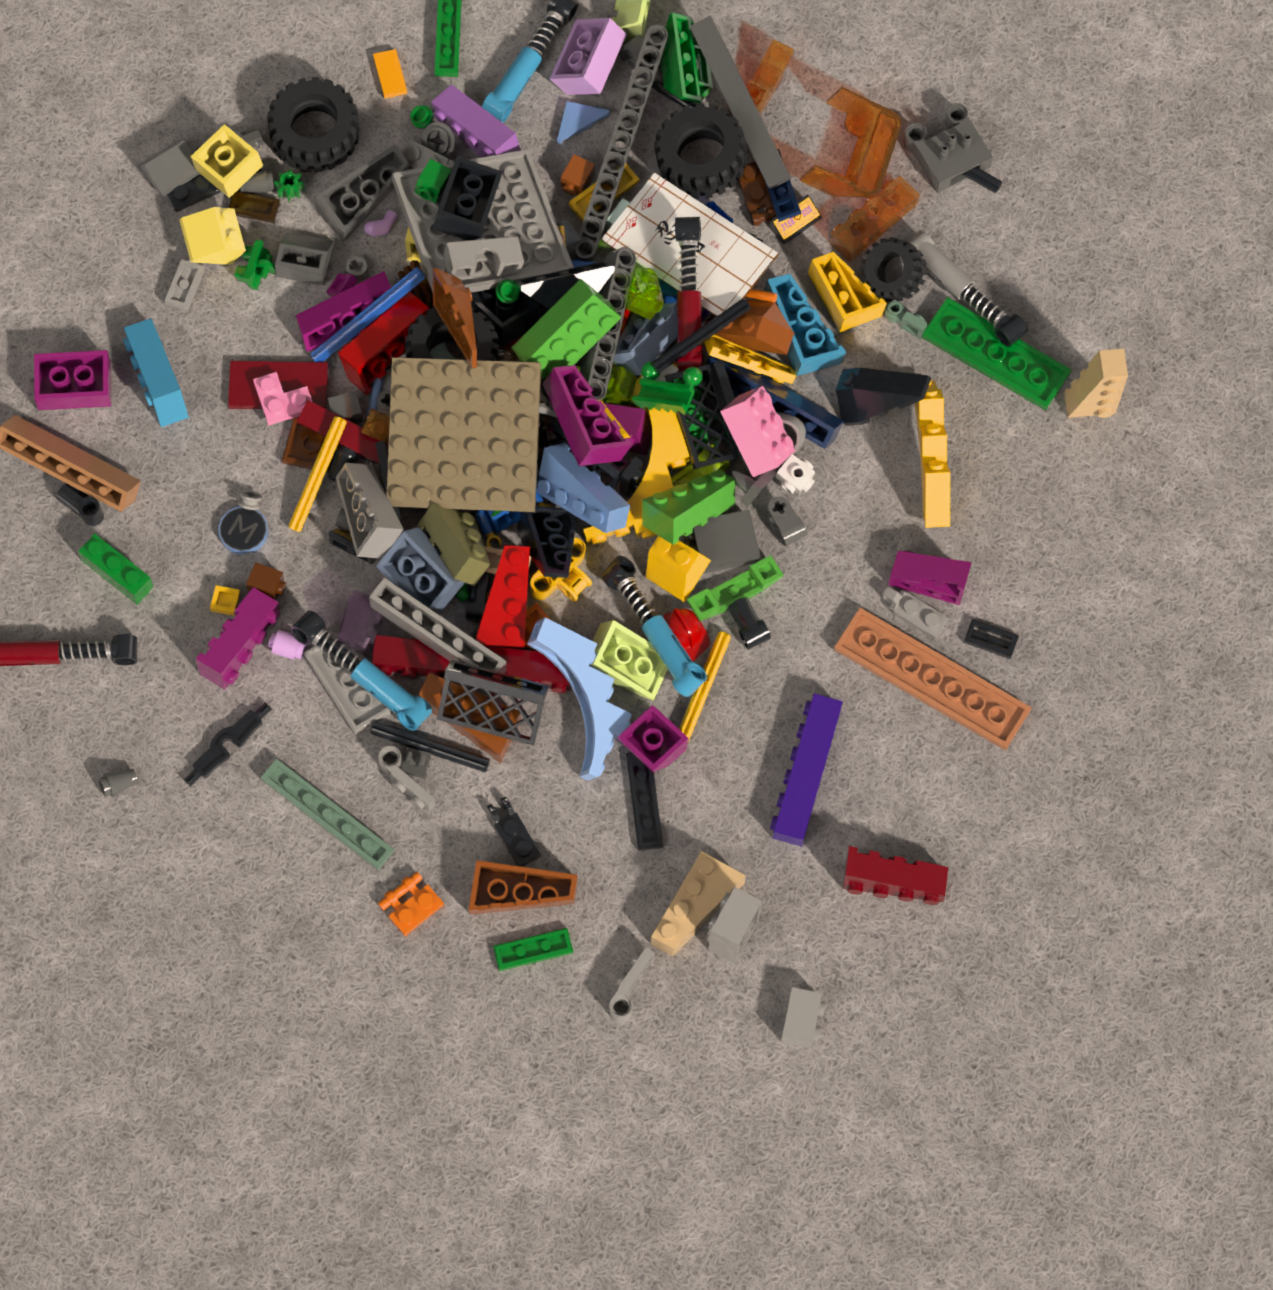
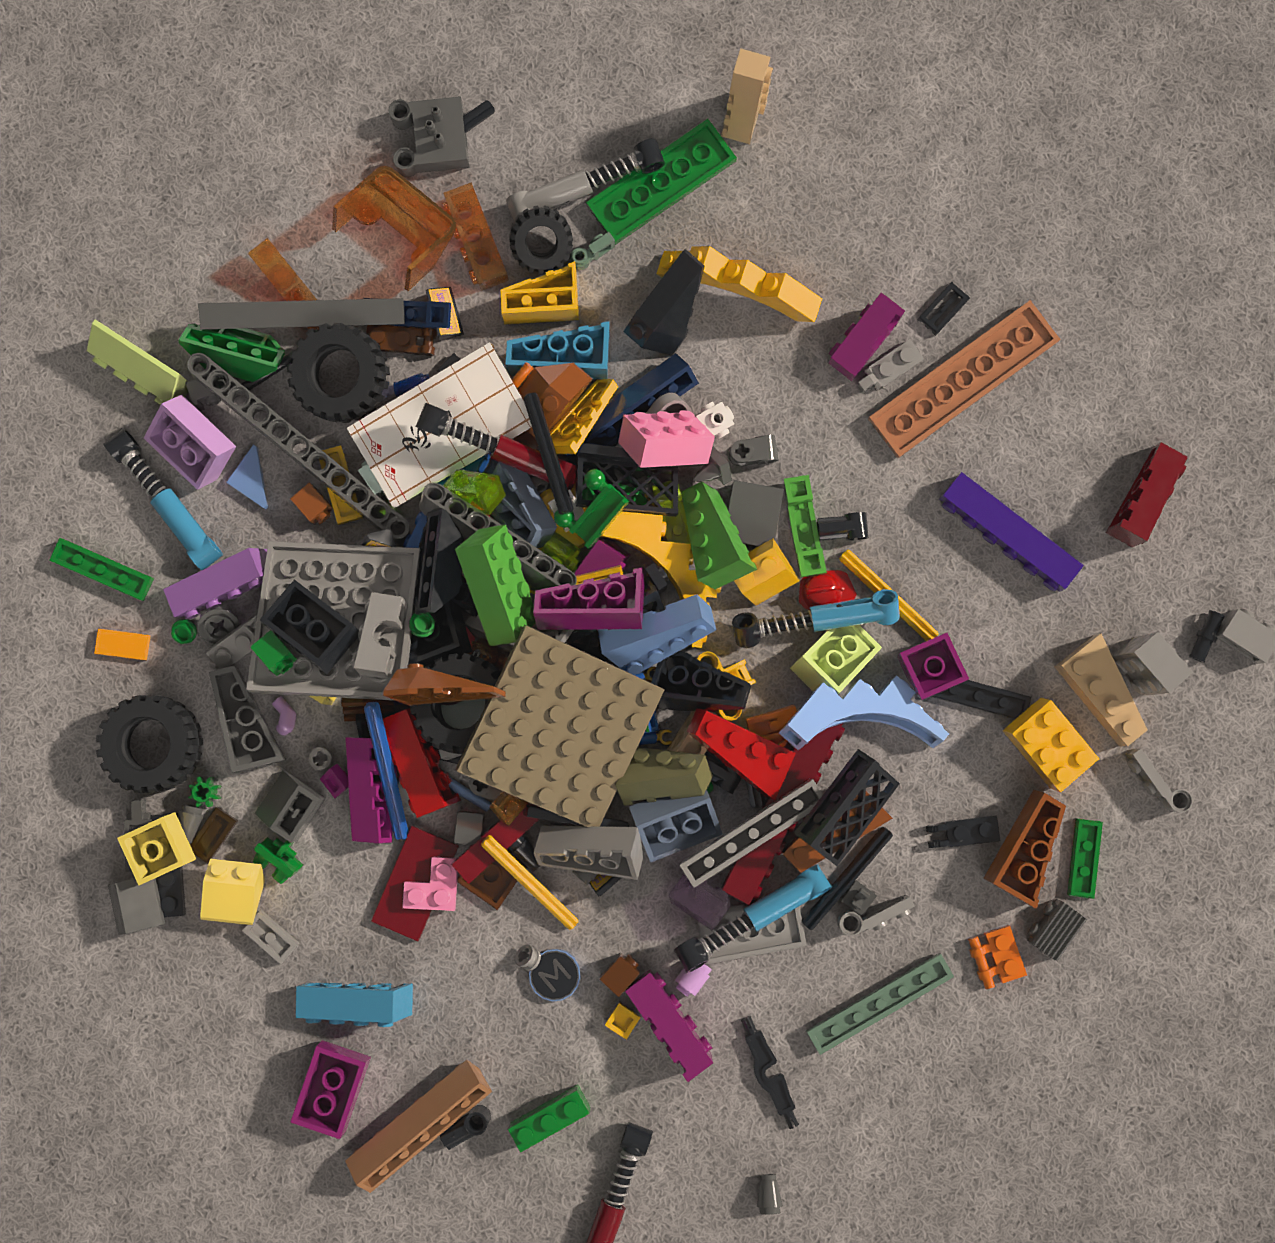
camera: 60 degrees left, 15 degrees up
(456, 943) = (1055, 929): none -> dark grey brick
(625, 872) = (1050, 744): none -> yellow brick
(785, 982) = (1206, 636): none -> black pin

